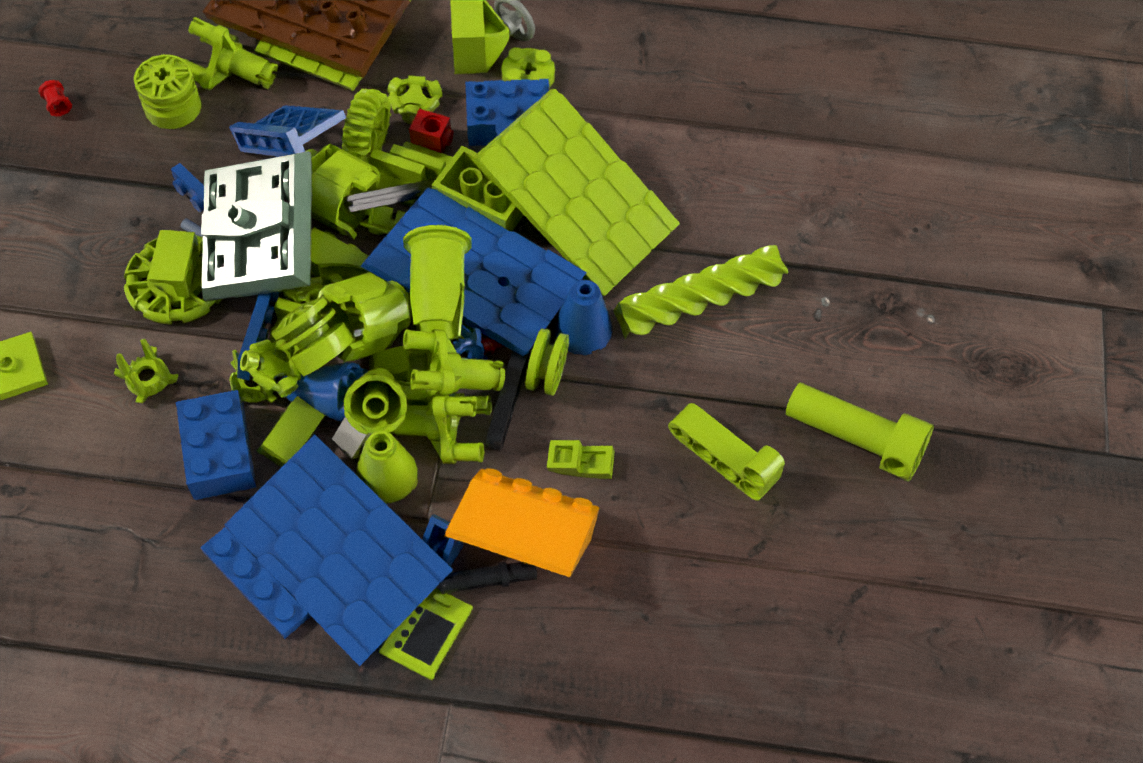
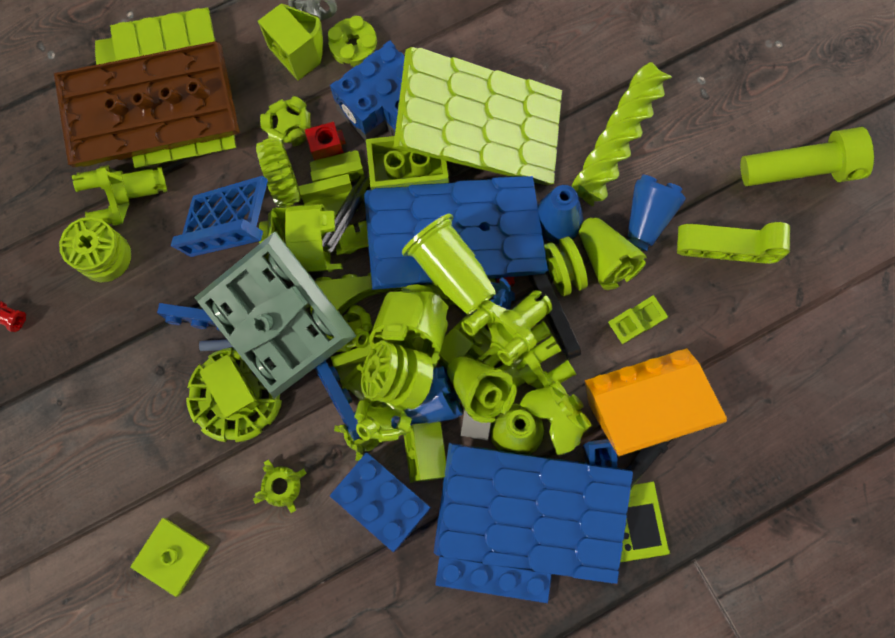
camera: 30 degrees left, 15 degrees up
(430, 478) = (562, 412): none -> lime brick
(599, 385) = (610, 253): none -> lime cone
(671, 372) = (652, 210): none -> blue cone

